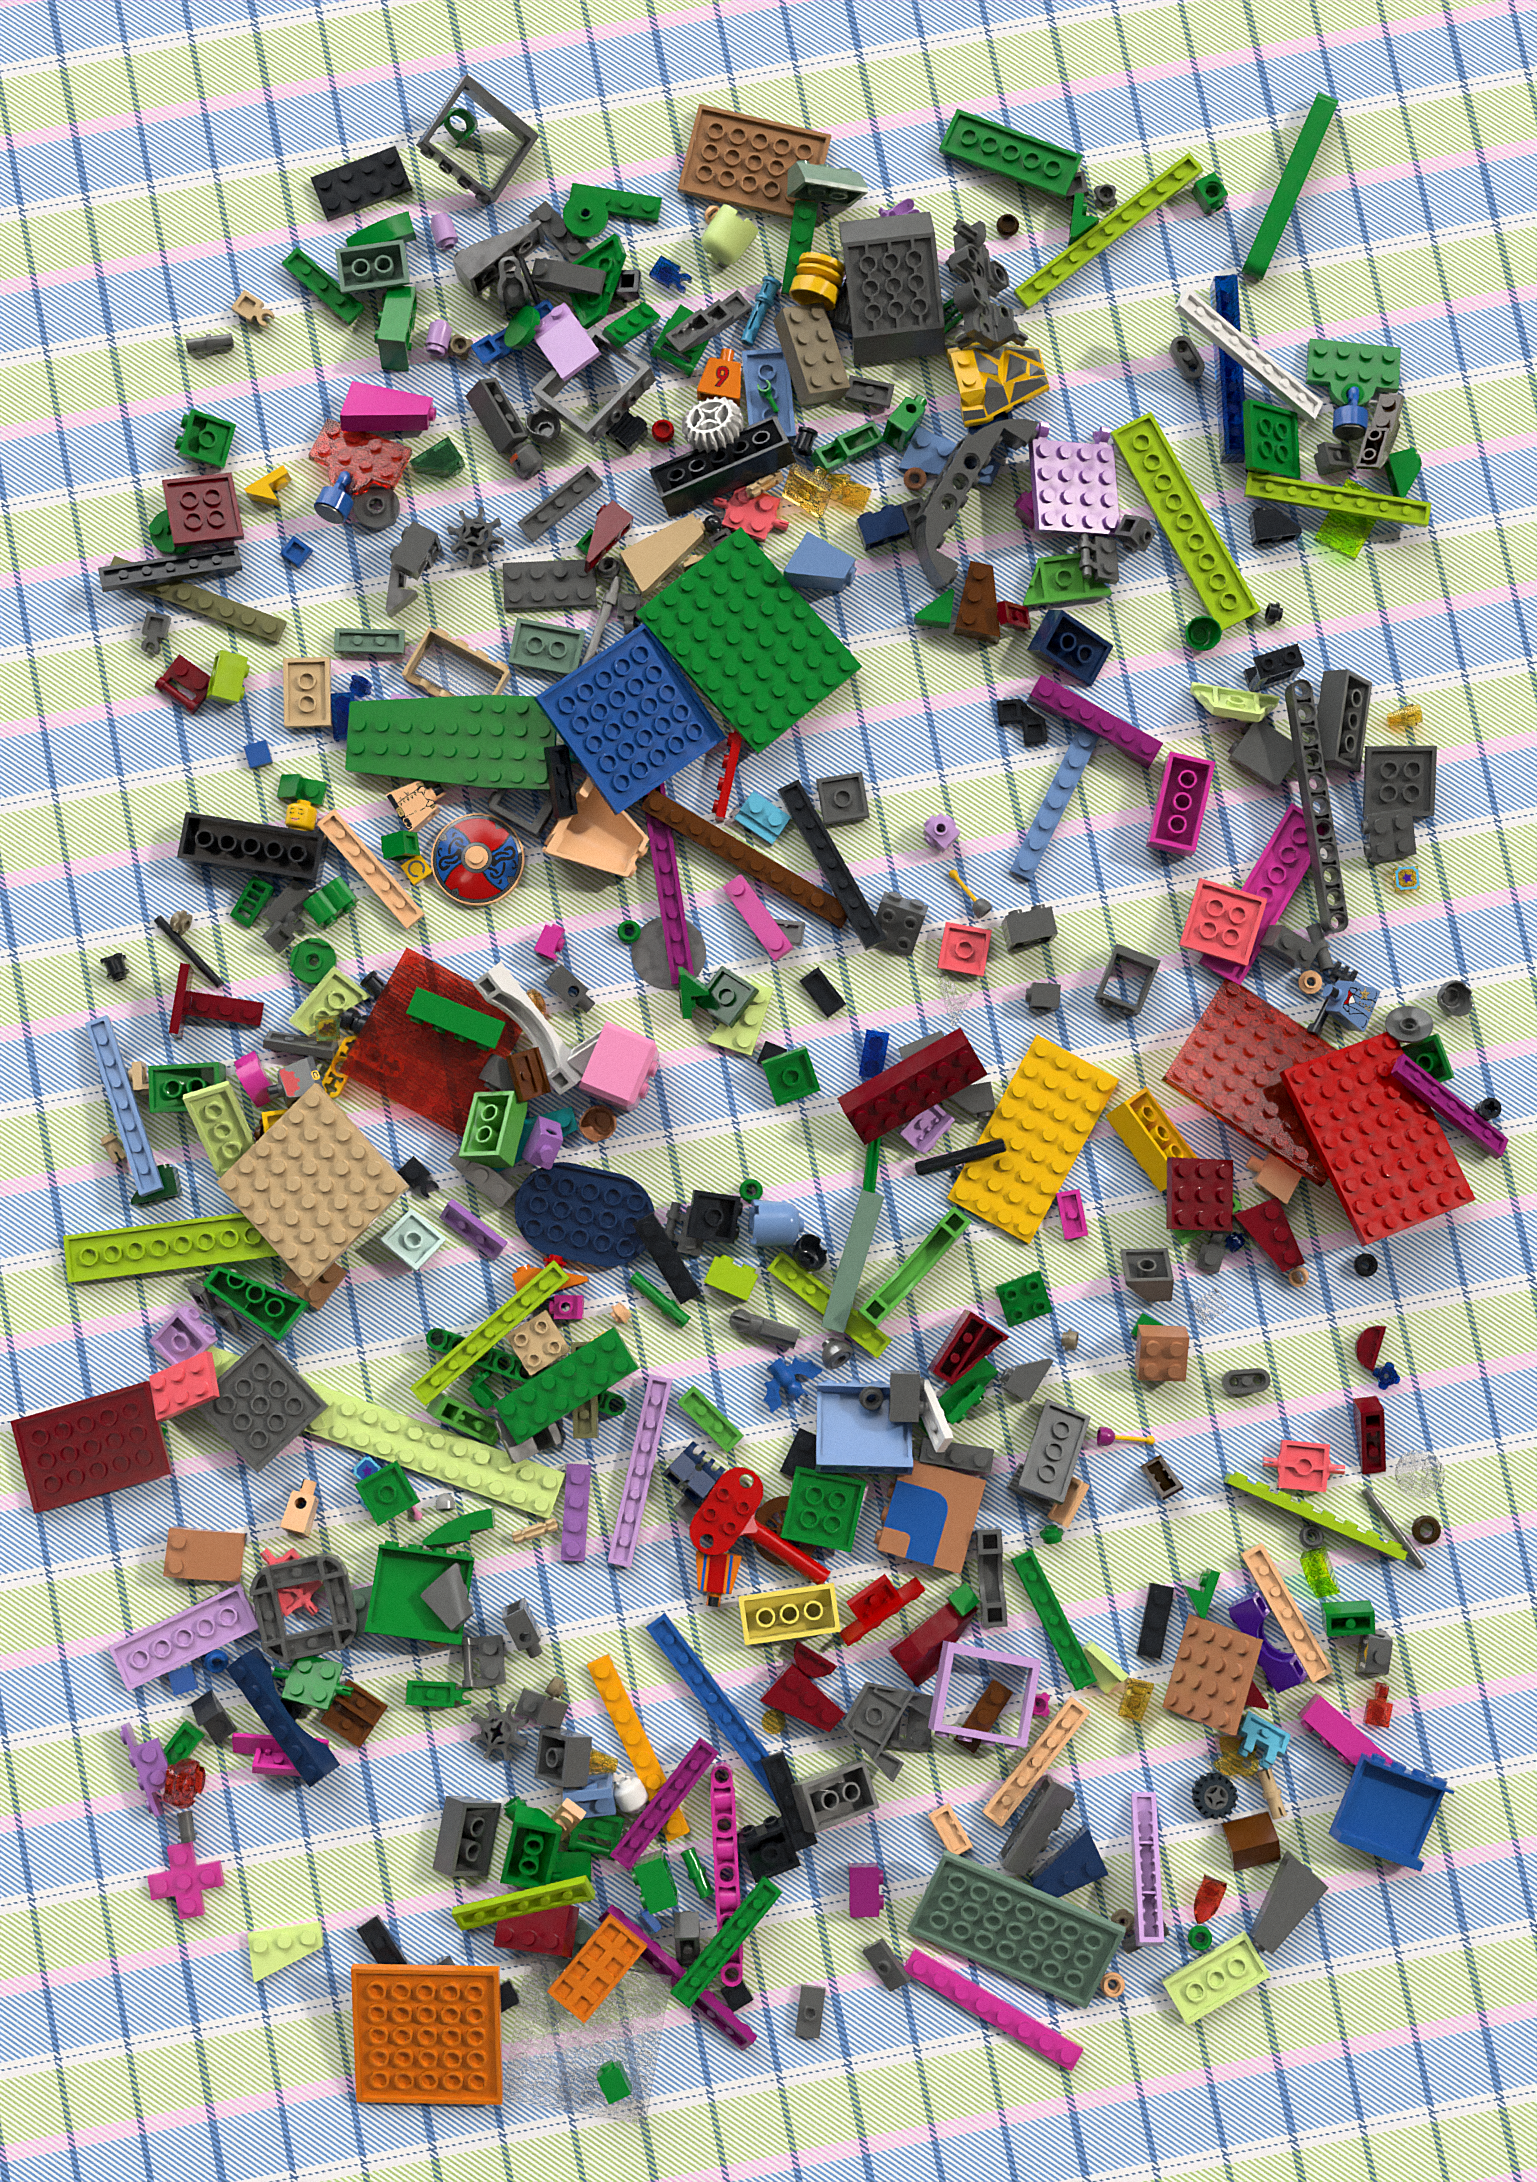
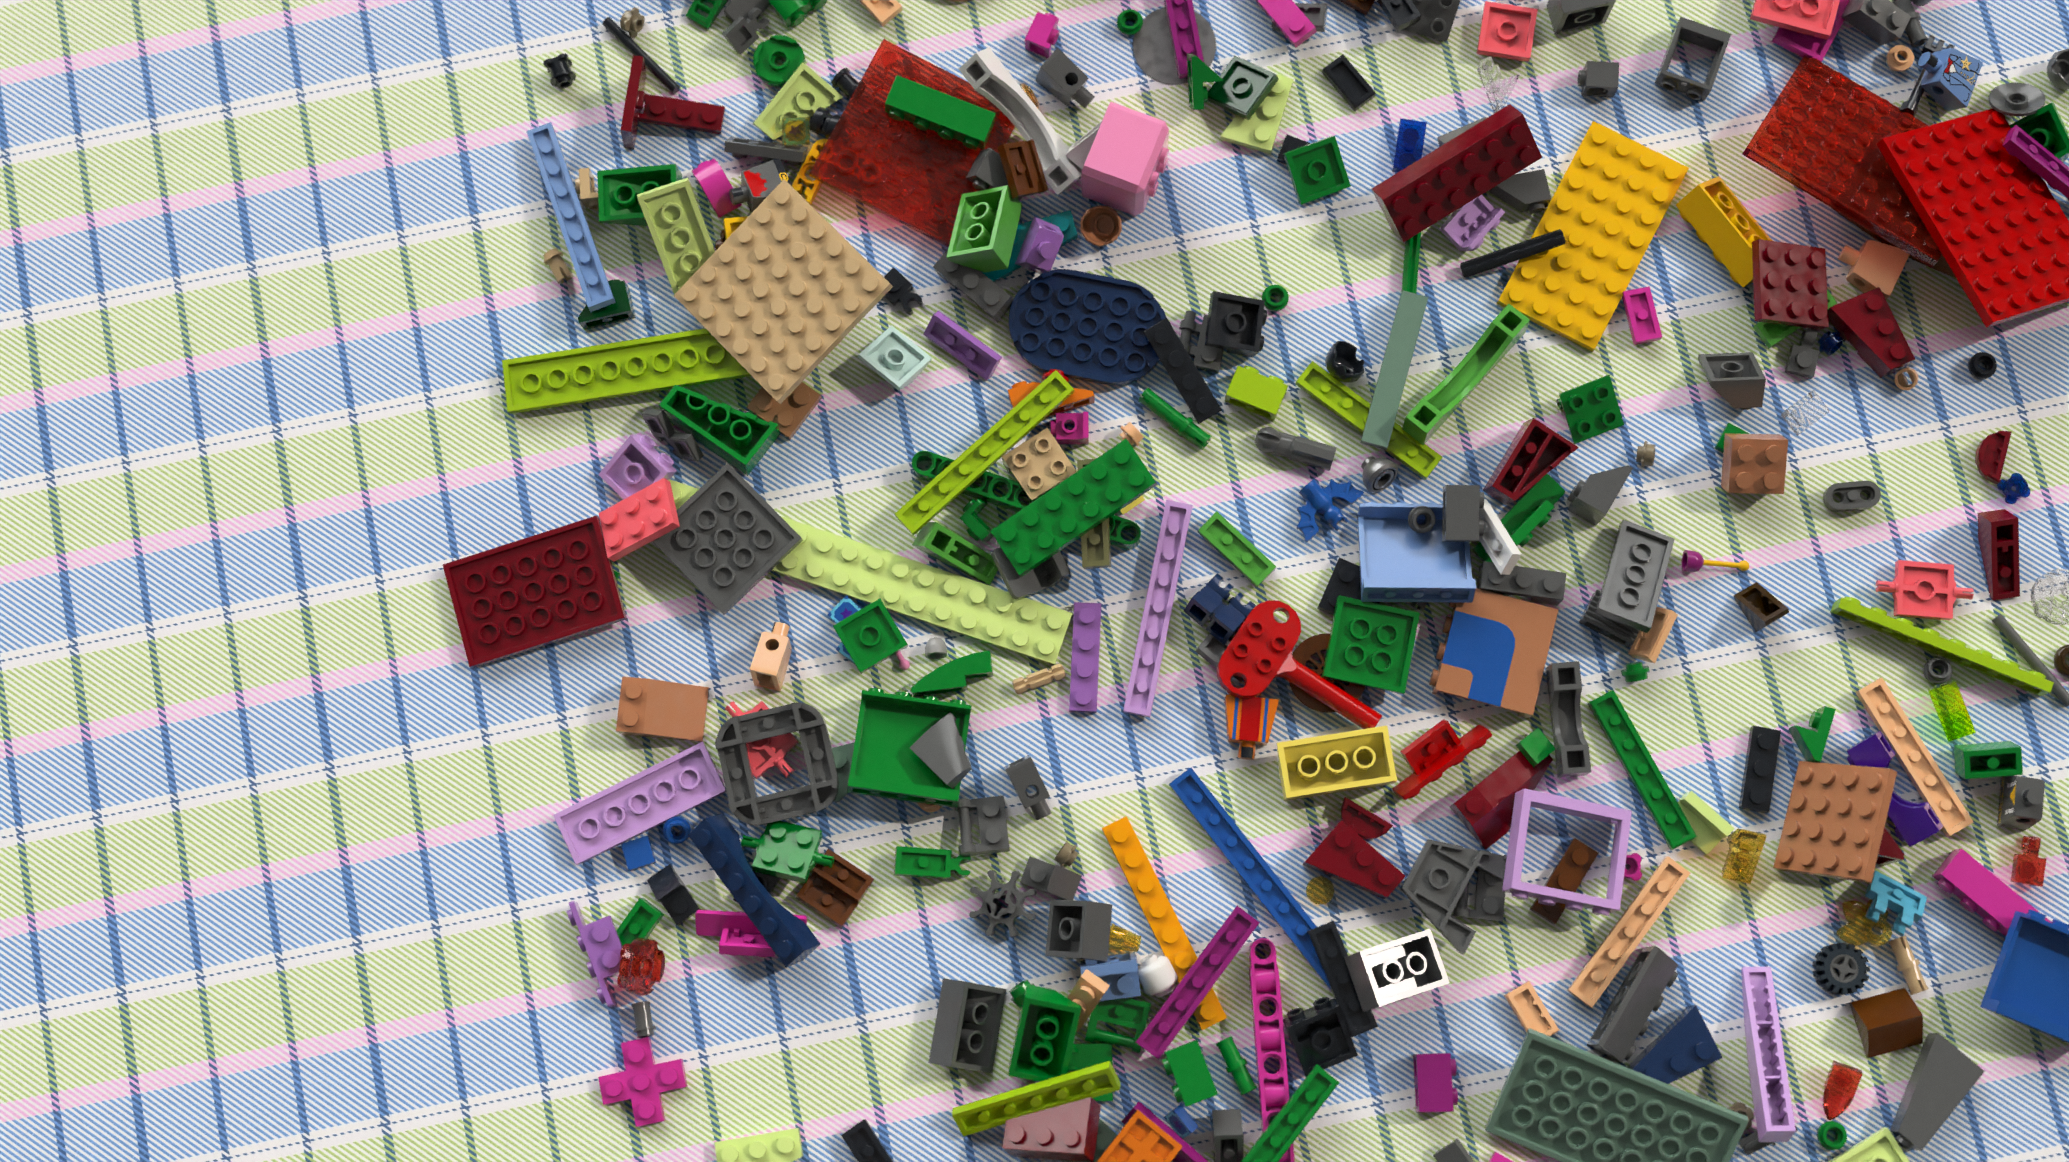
camera: 10 degrees right, 5 degrees down
(774, 1223) = (1303, 329): medium blue cylinder -> none

